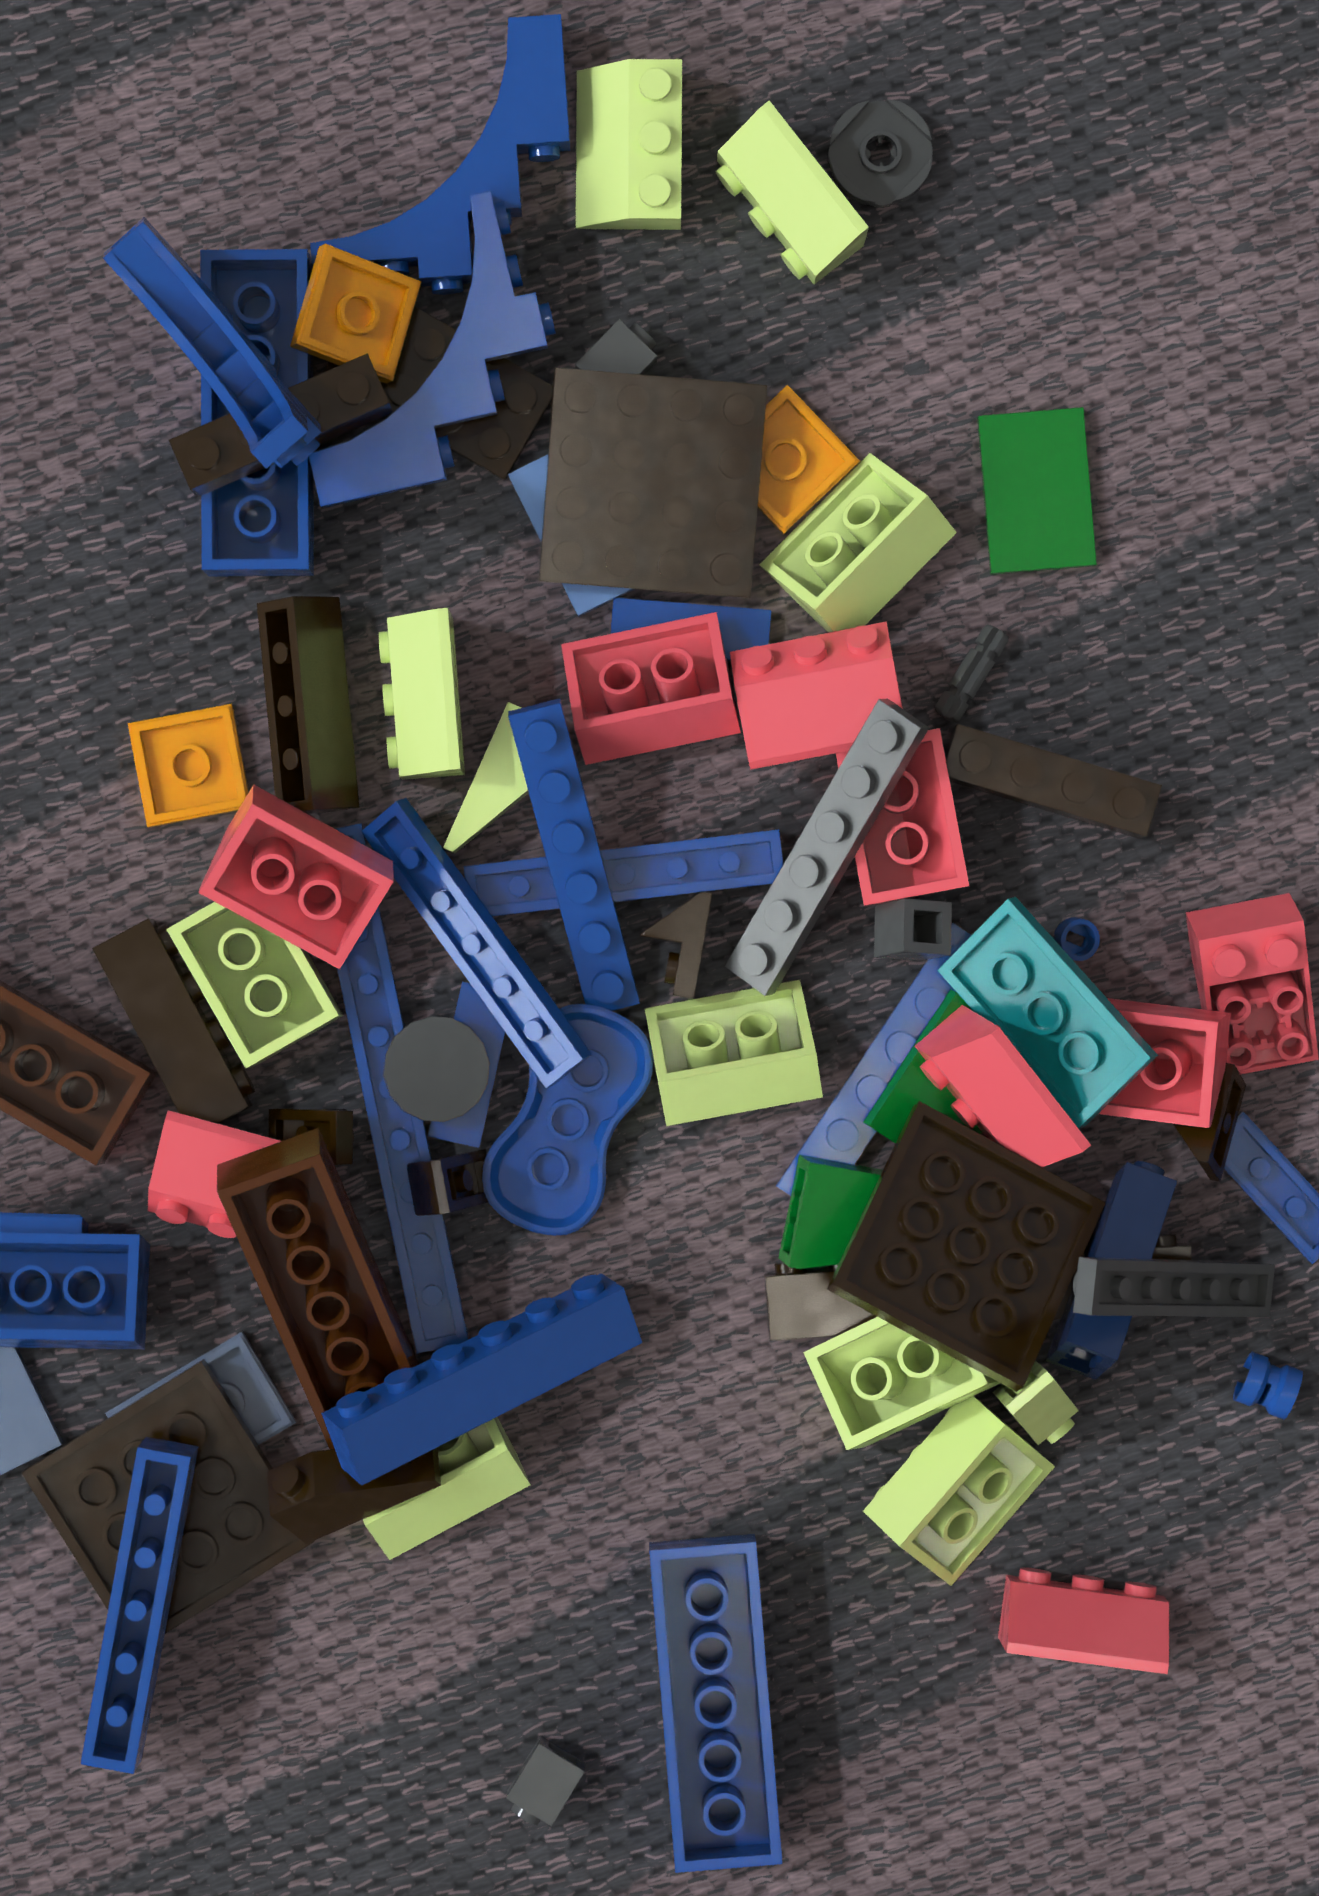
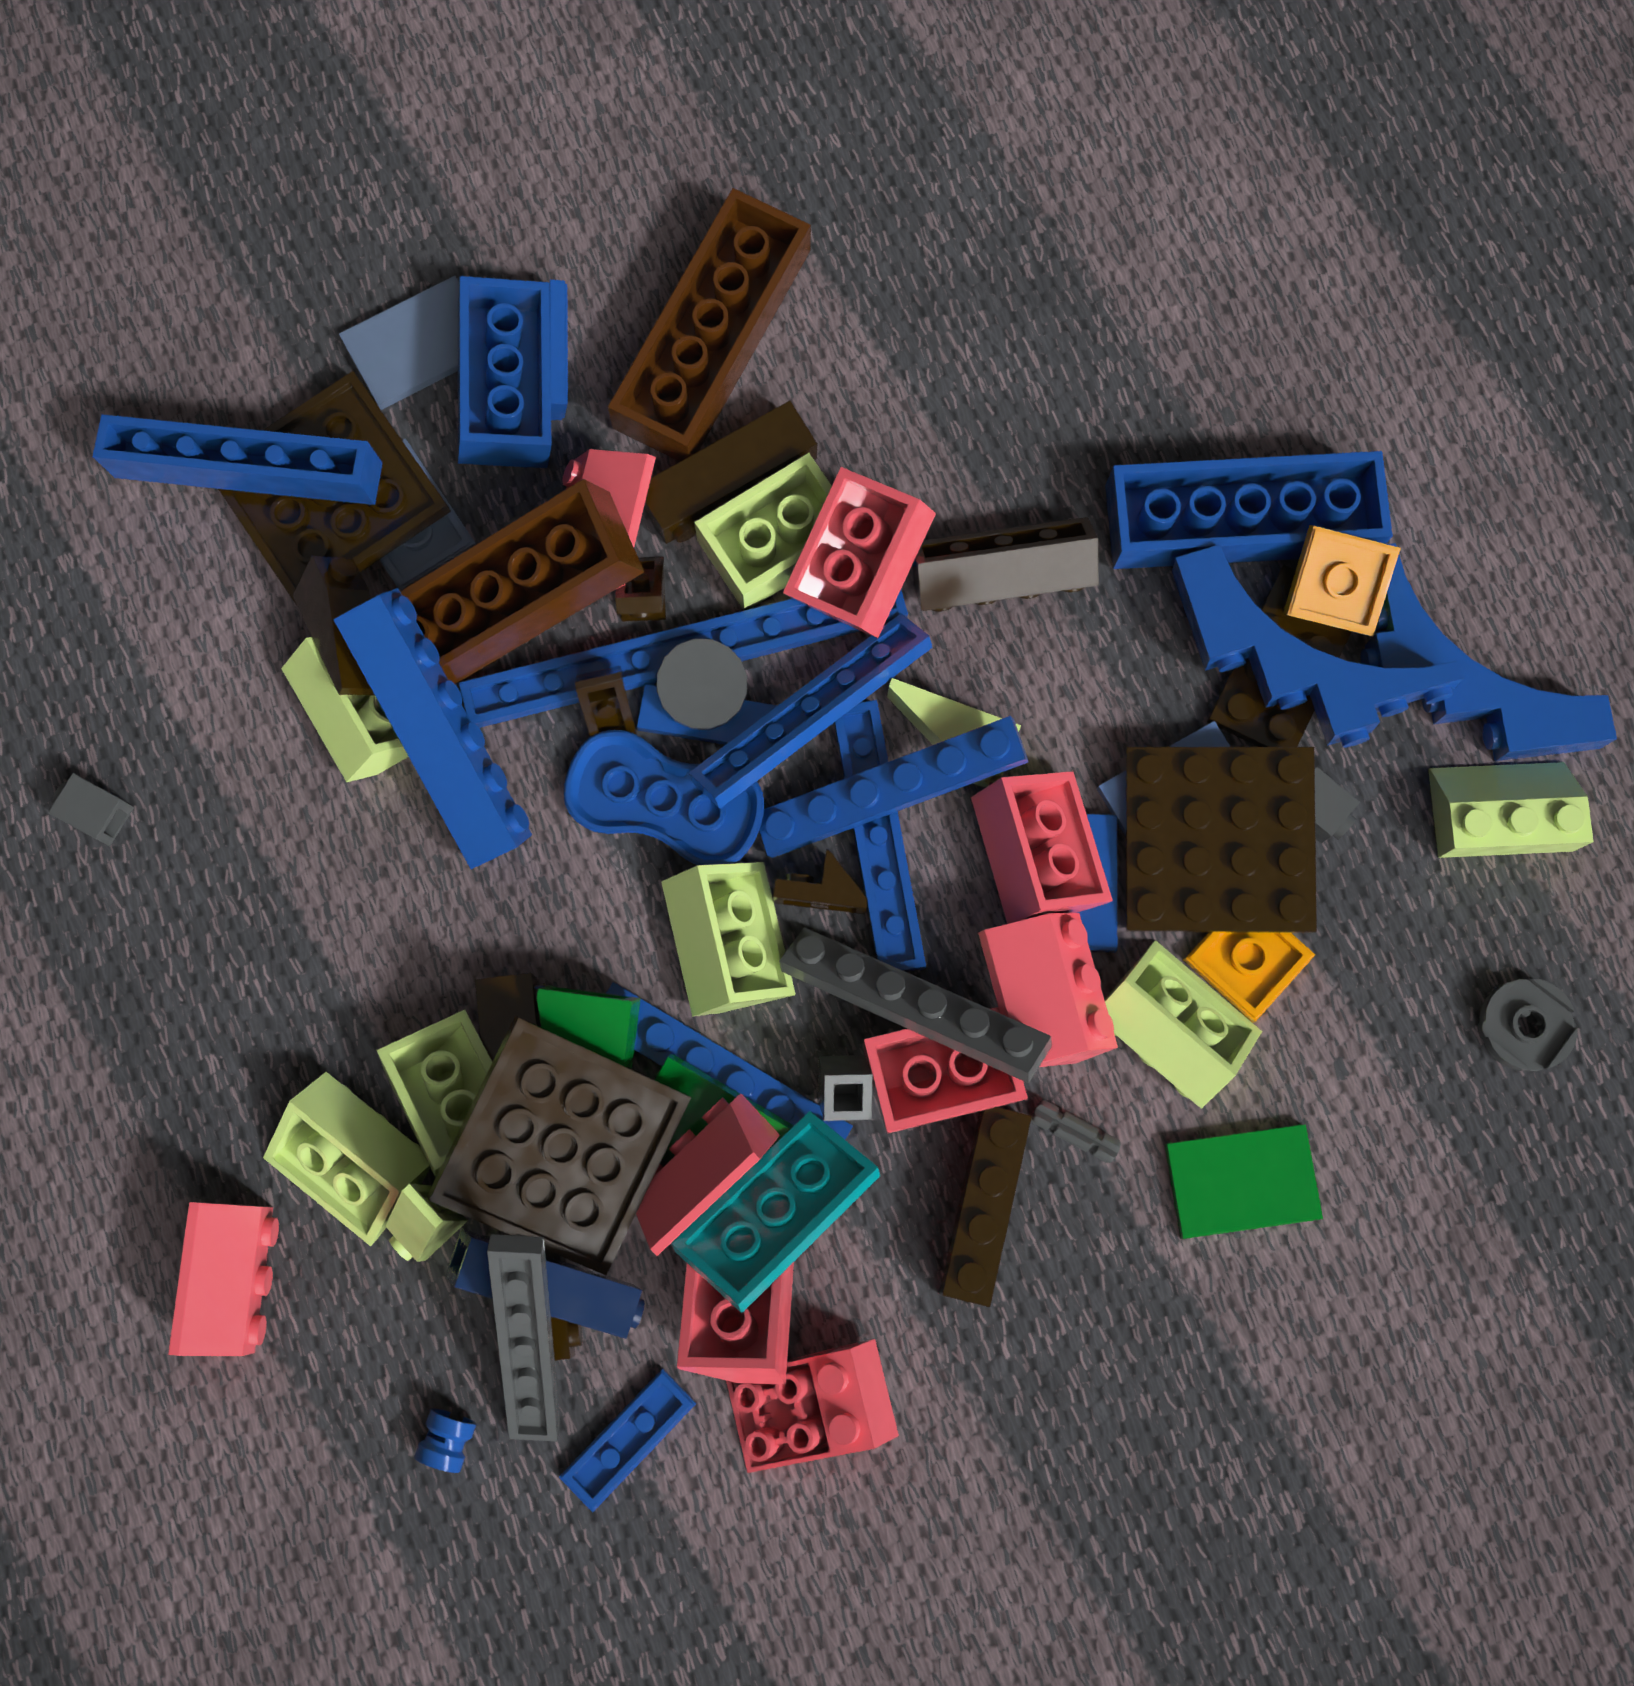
camera: 90 degrees right, 10 degrees down
(189, 765) = (949, 475): light orange tile -> none
(203, 327) = (1323, 442): blue arch -> none
(336, 399) = (1243, 515): dark brown brick -> none
(423, 695) = (1021, 659): yellowish green slope -> none
(715, 1703) = (153, 949): blue brick -> none
(790, 195) = (1484, 945): yellowish green slope -> none
(1080, 927) = (855, 1243): blue hinge -> none
(1212, 1144) = (662, 1374): dark brown slope -> none

